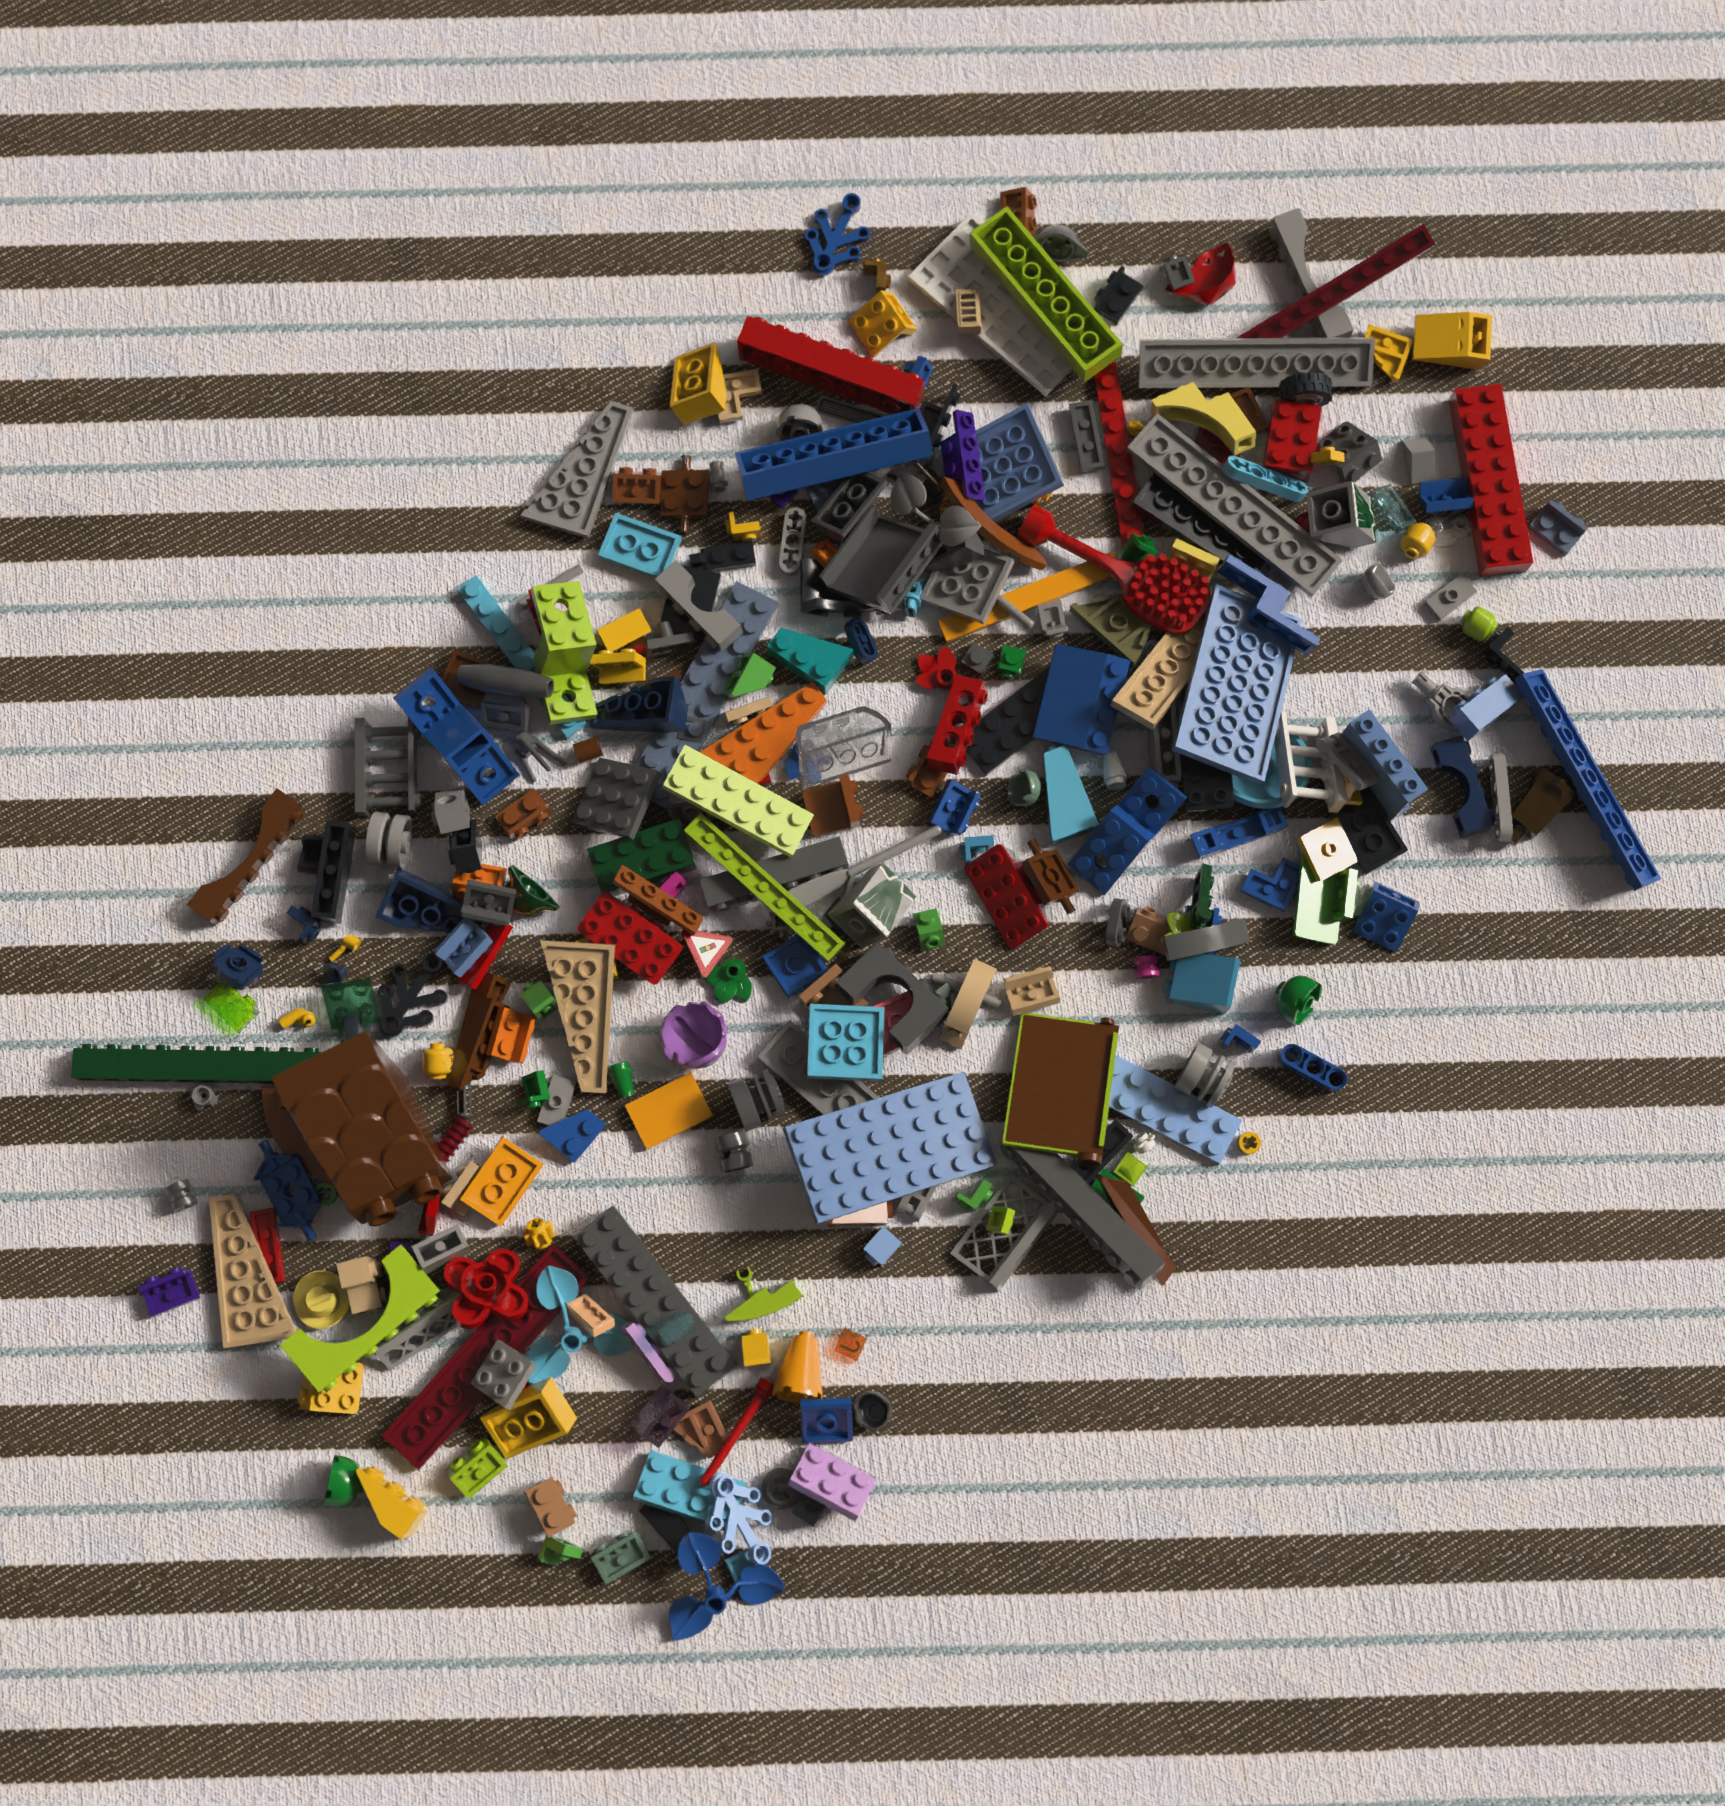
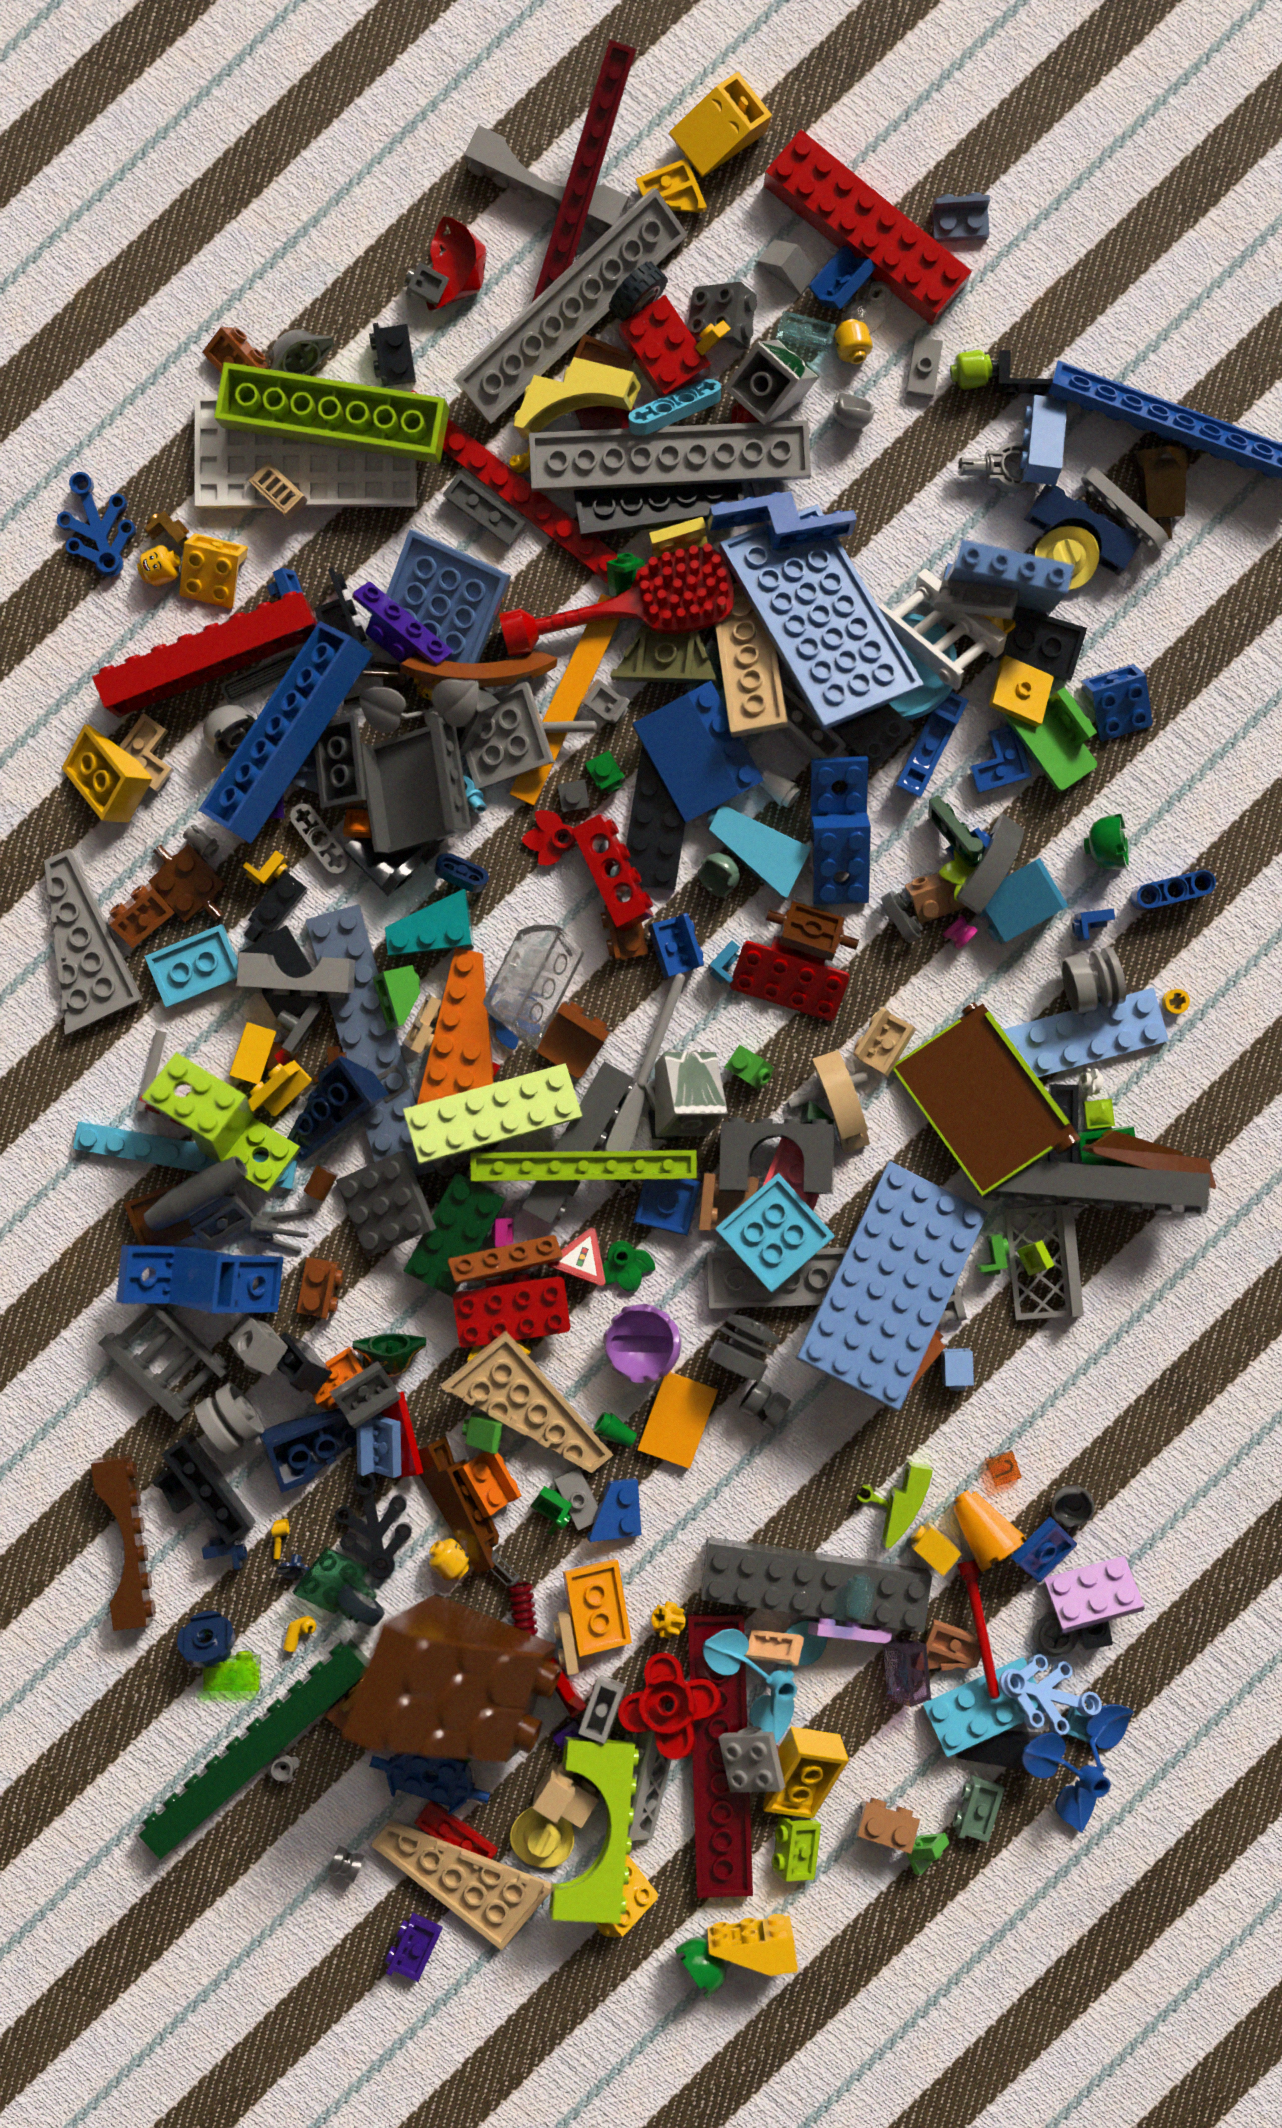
camera: 40 degrees left, 10 degrees up
(851, 291) = (159, 566): none -> yellow head
(1441, 799) = (1074, 547): none -> light yellow hat

